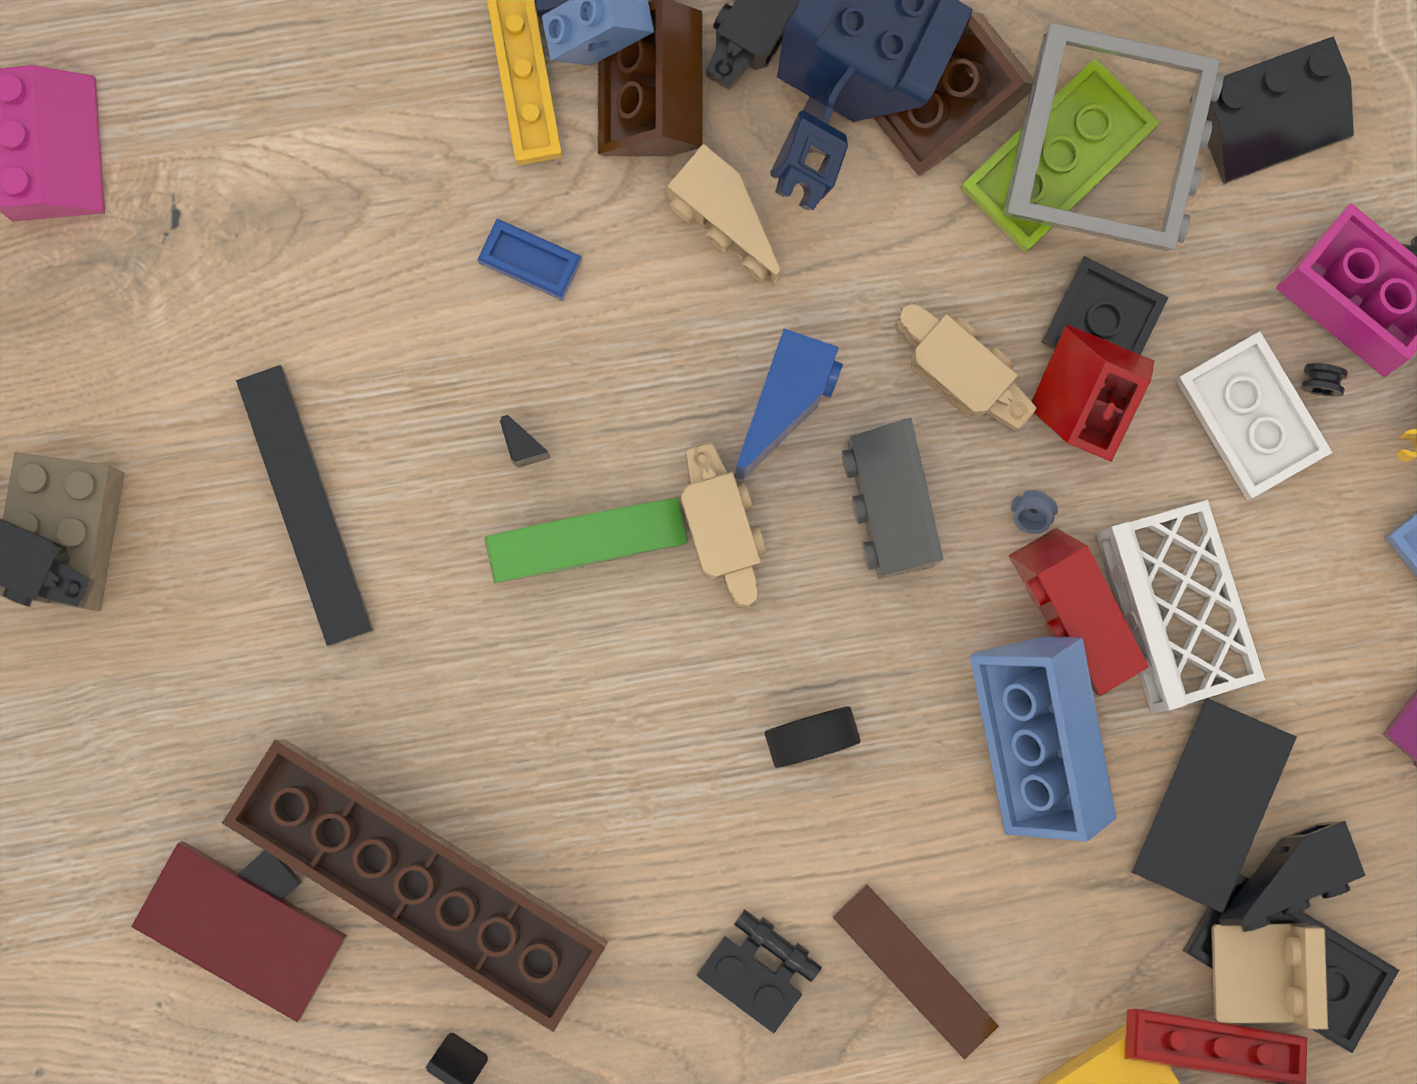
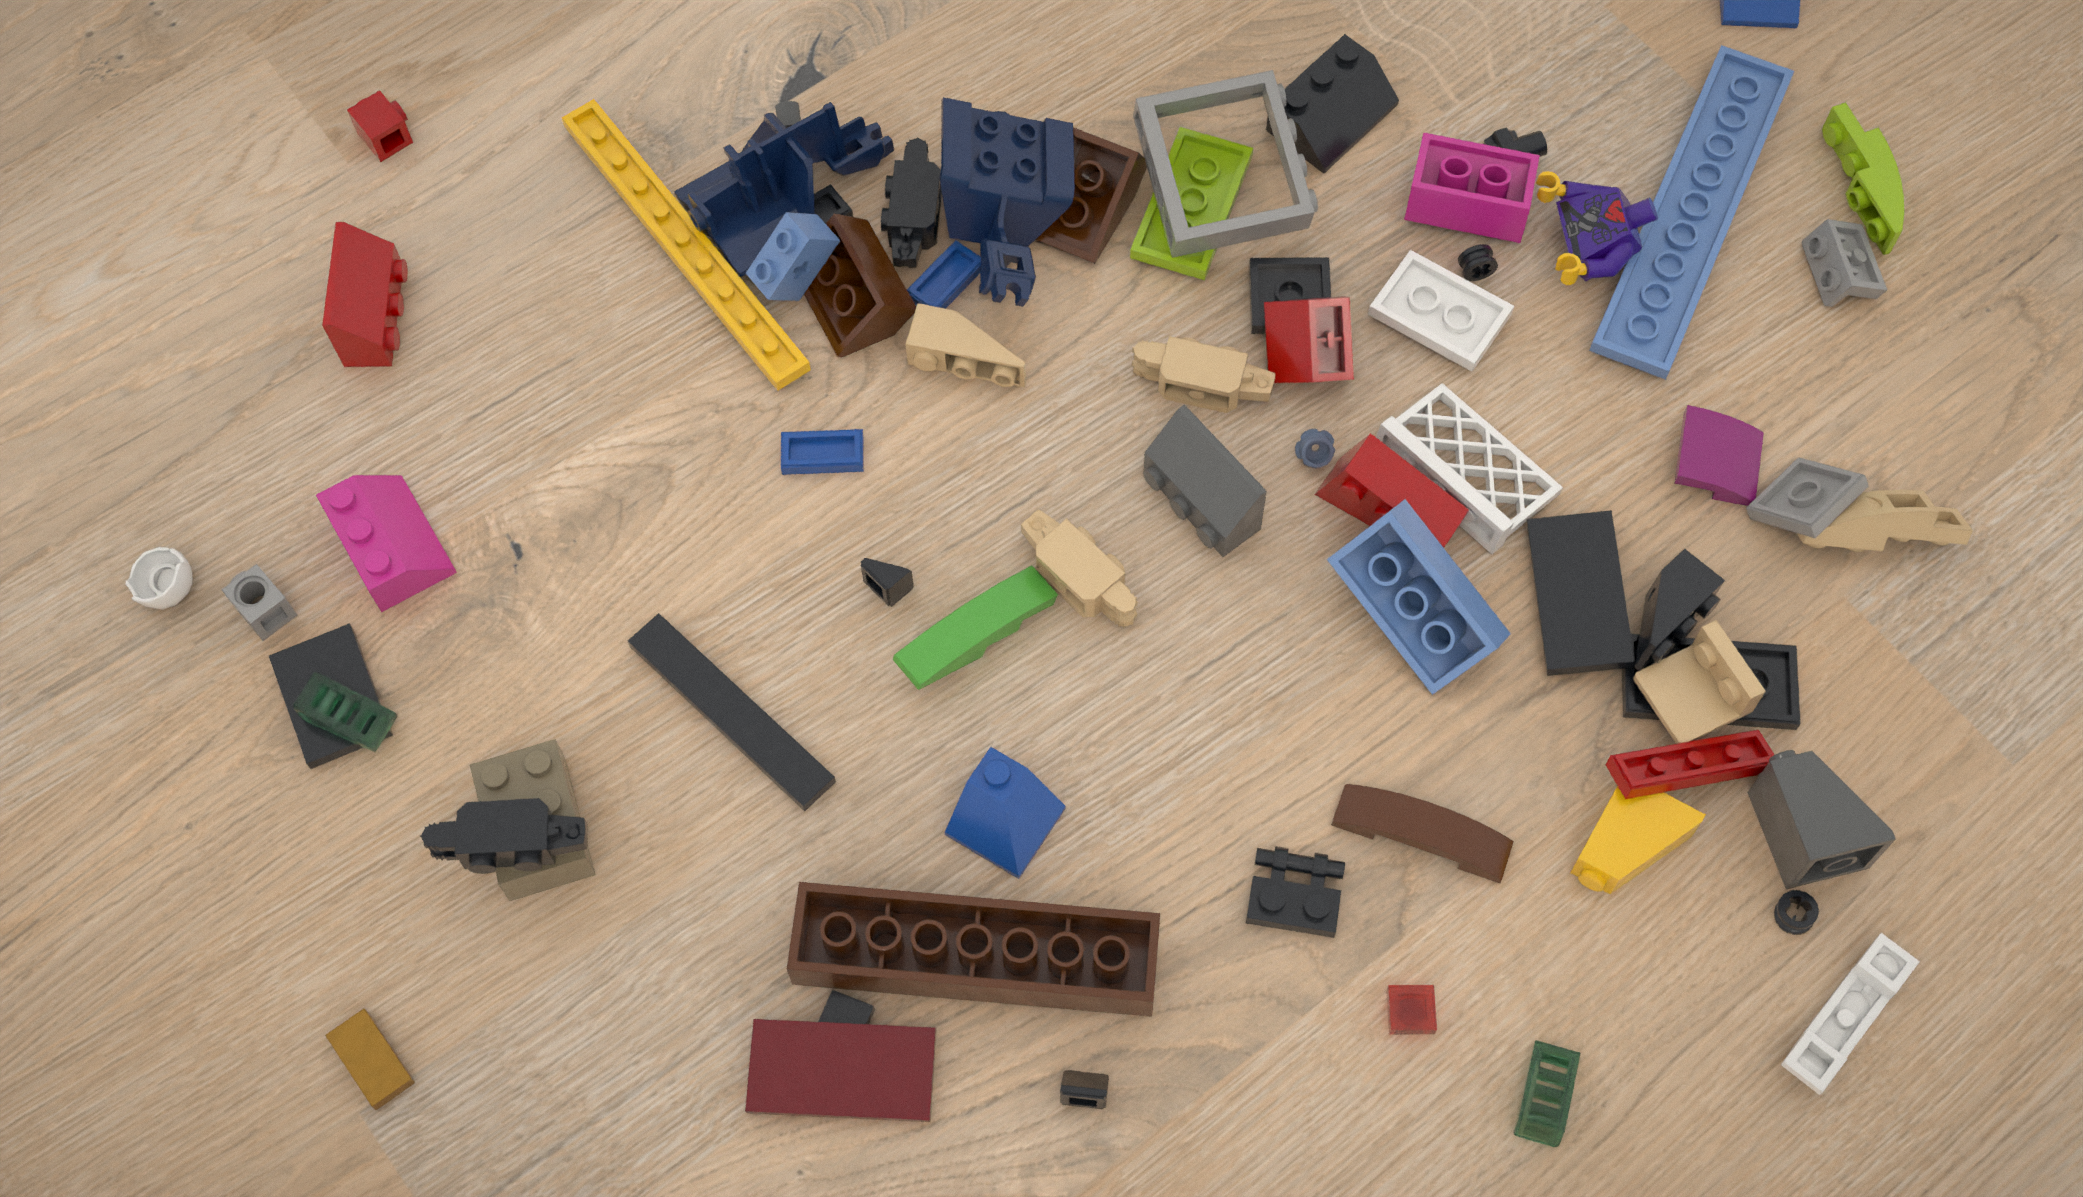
camera: 20 degrees left, 20 degrees down
(517, 753) = (1004, 813): none -> blue slope
(753, 117) = (946, 277): none -> blue tile
(793, 388) = (1080, 433): blue slope -> none
(812, 737) = (1237, 681): black tyre -> none

